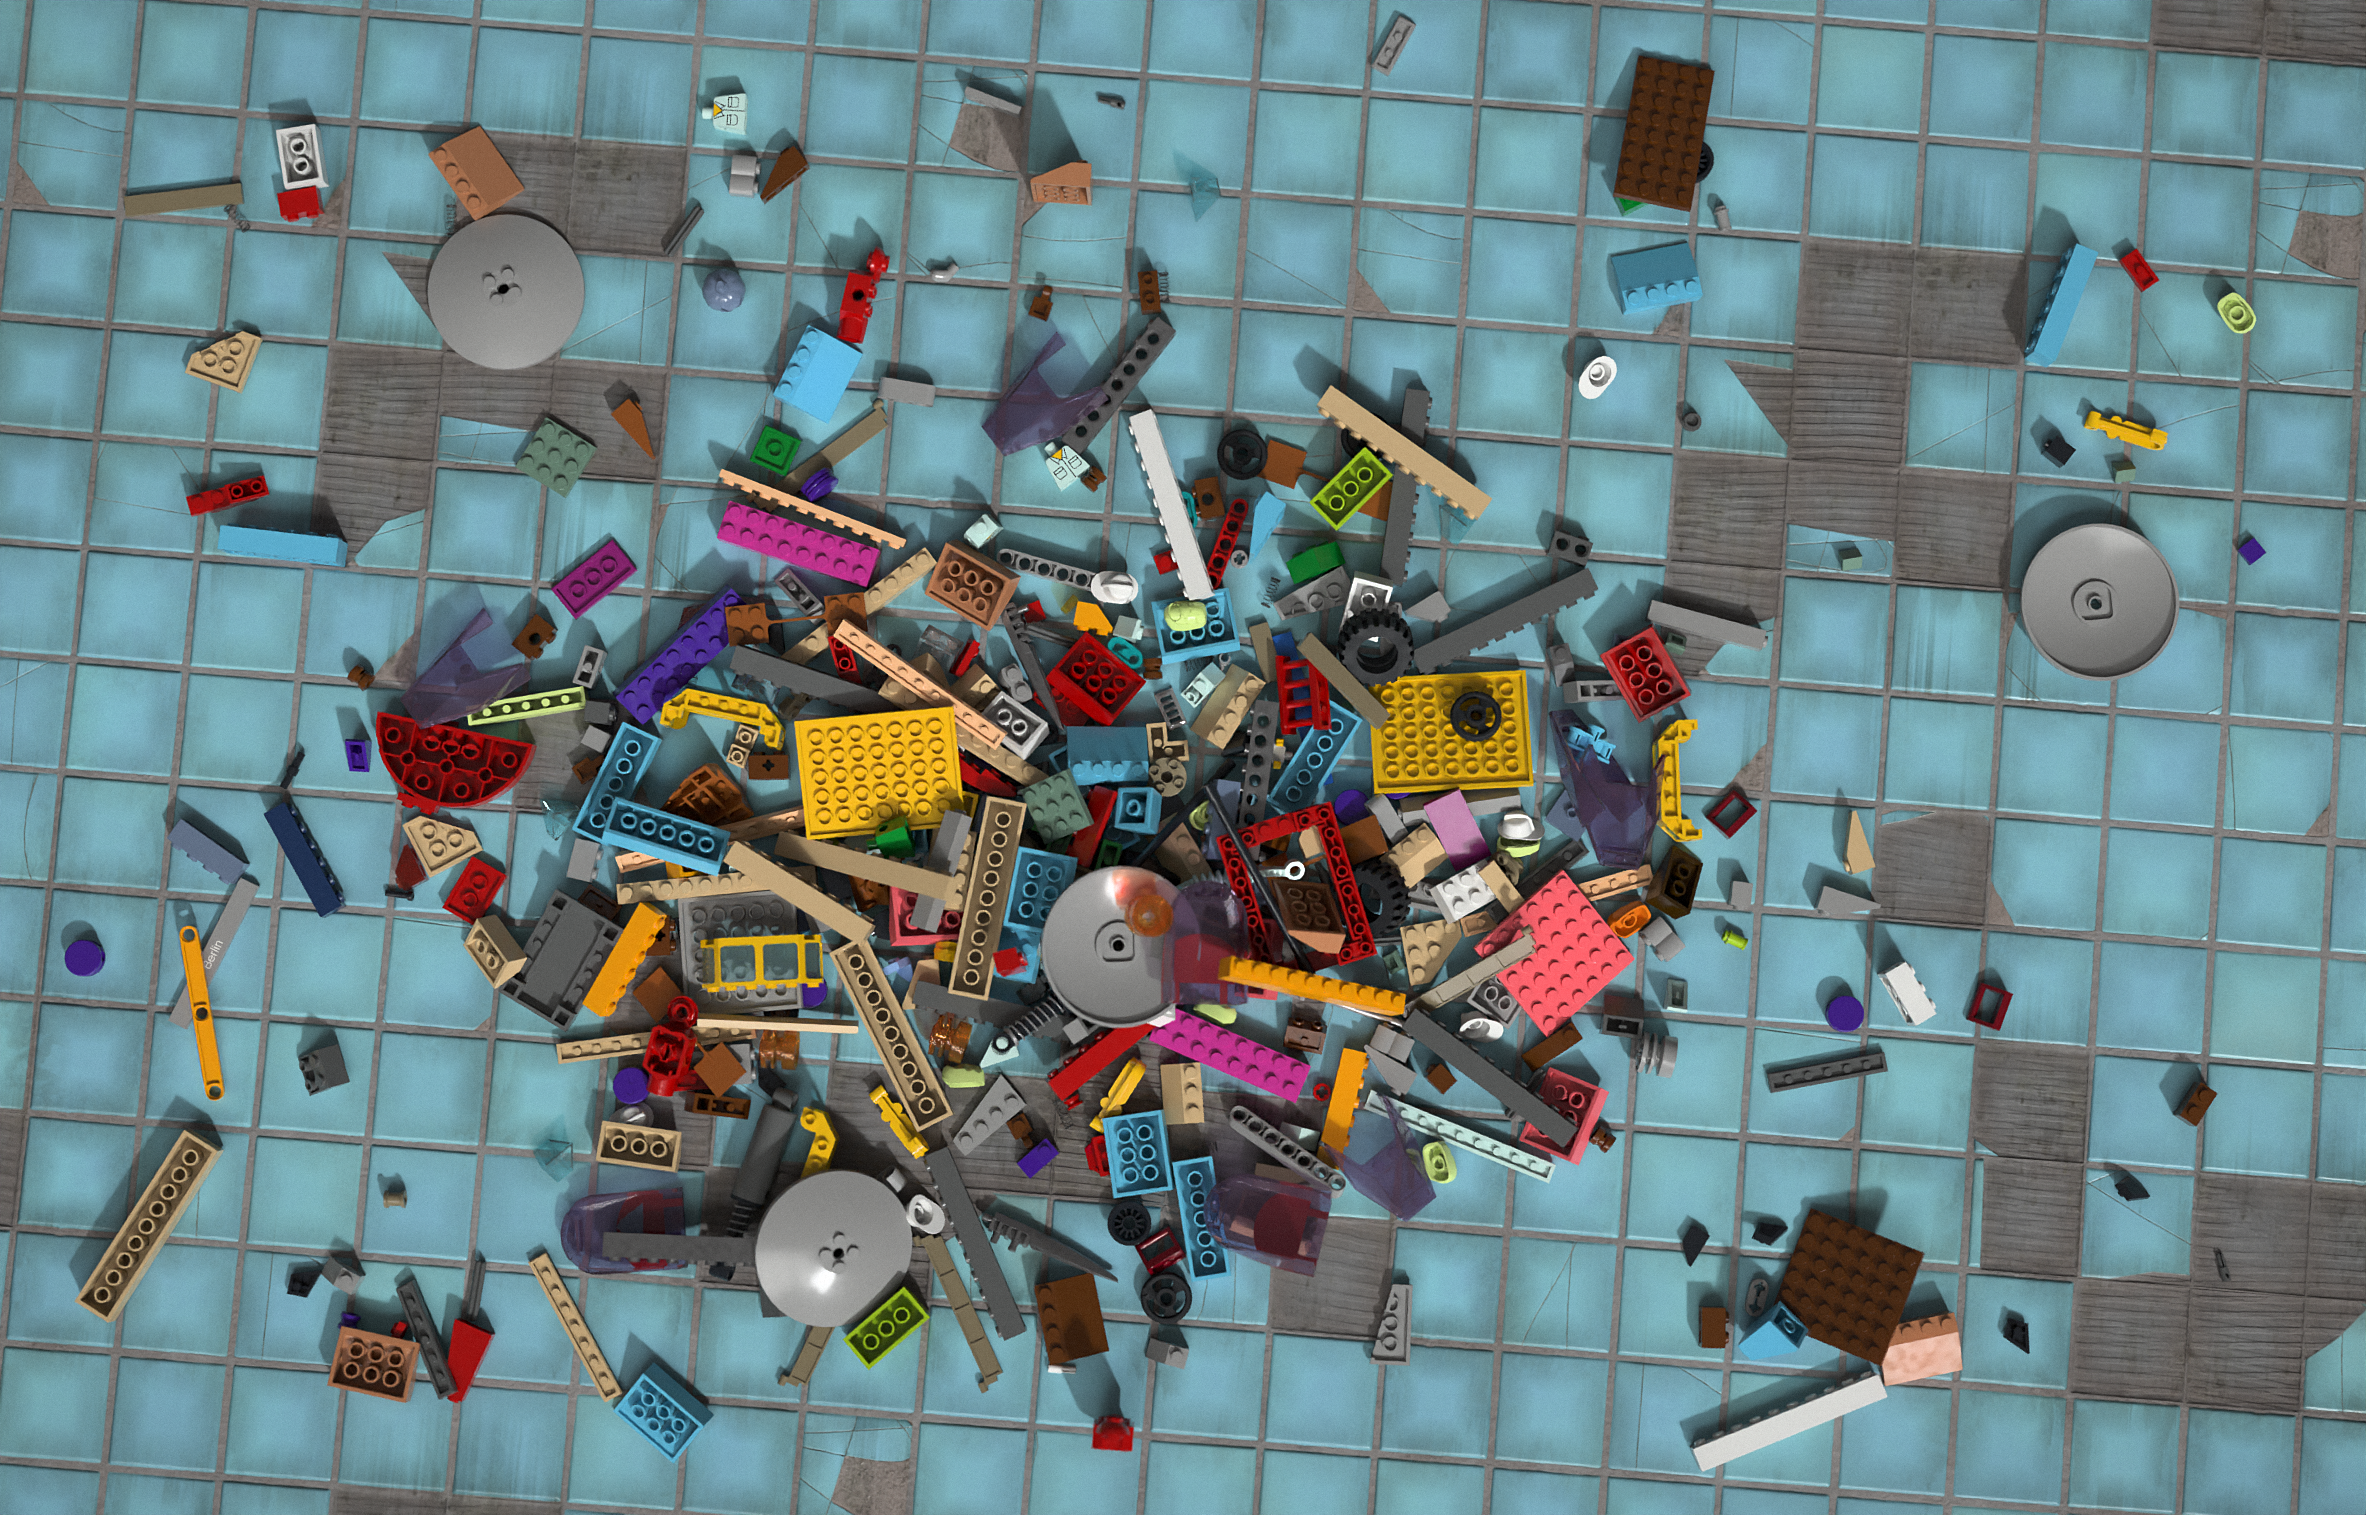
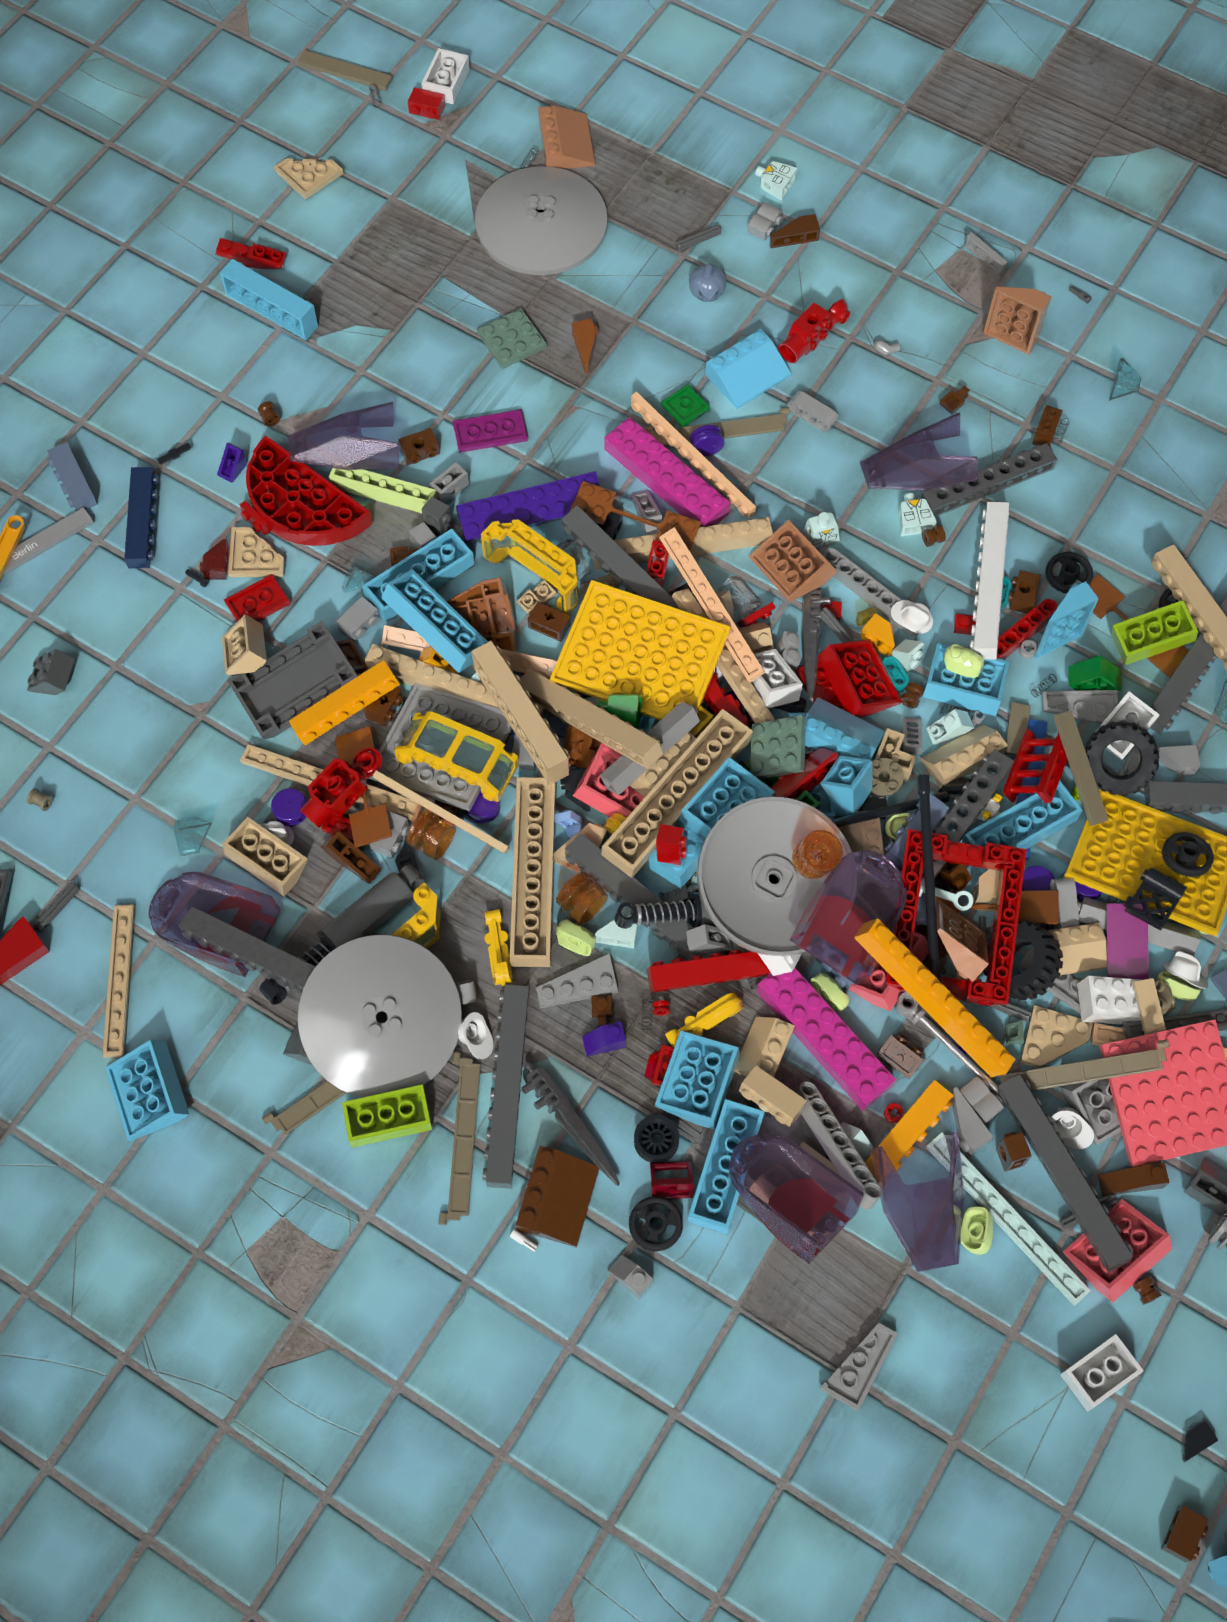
camera: 30 degrees right, 20 degrees down
(1113, 1433) = (541, 1312): red brick -> none
(1211, 1140) = (772, 1096): none -> tan slope
(1463, 766) = (1162, 889): none -> black piece
(1593, 1231) = (1101, 1373): none -> white brick

